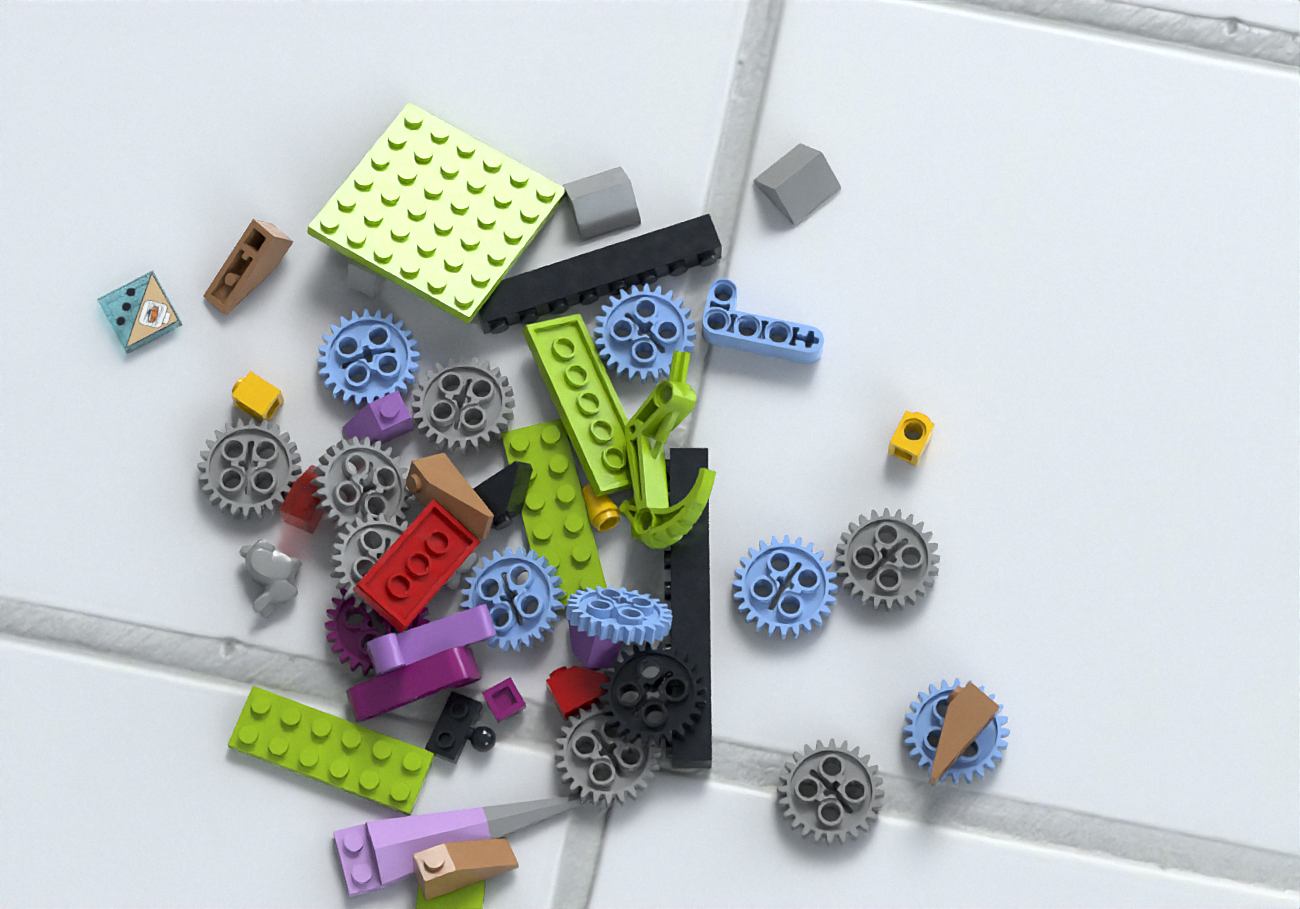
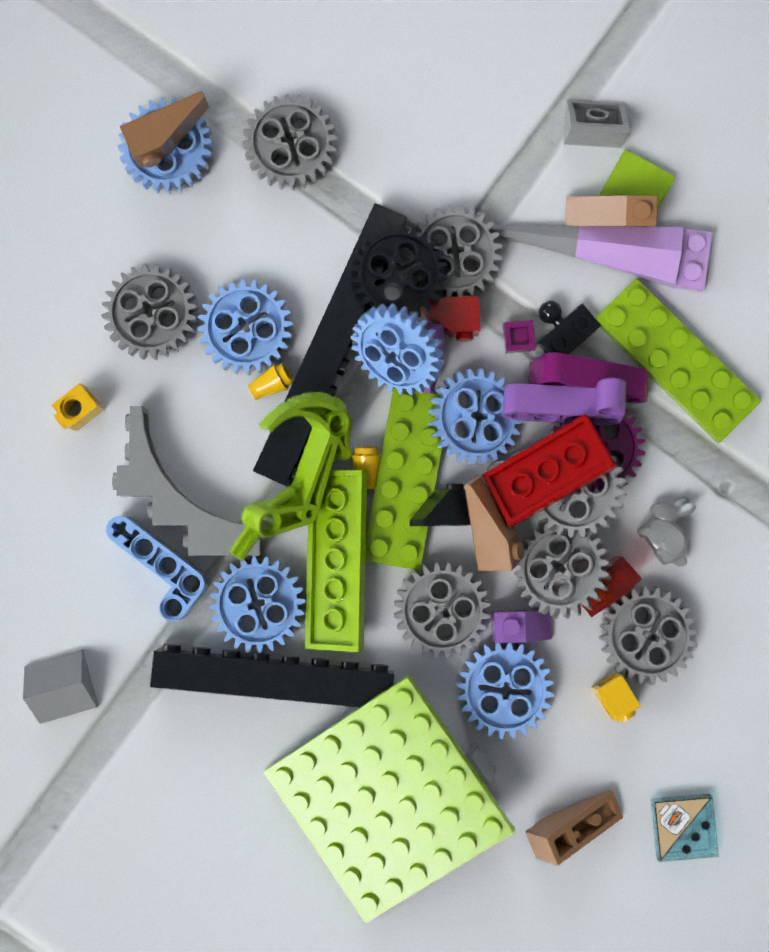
camera: 155 degrees left, 15 degrees up
(602, 203) = (237, 746): light grey slope -> none
(732, 546) = (272, 381): none -> yellow cone
(772, 385) = (169, 506): none -> light grey arch

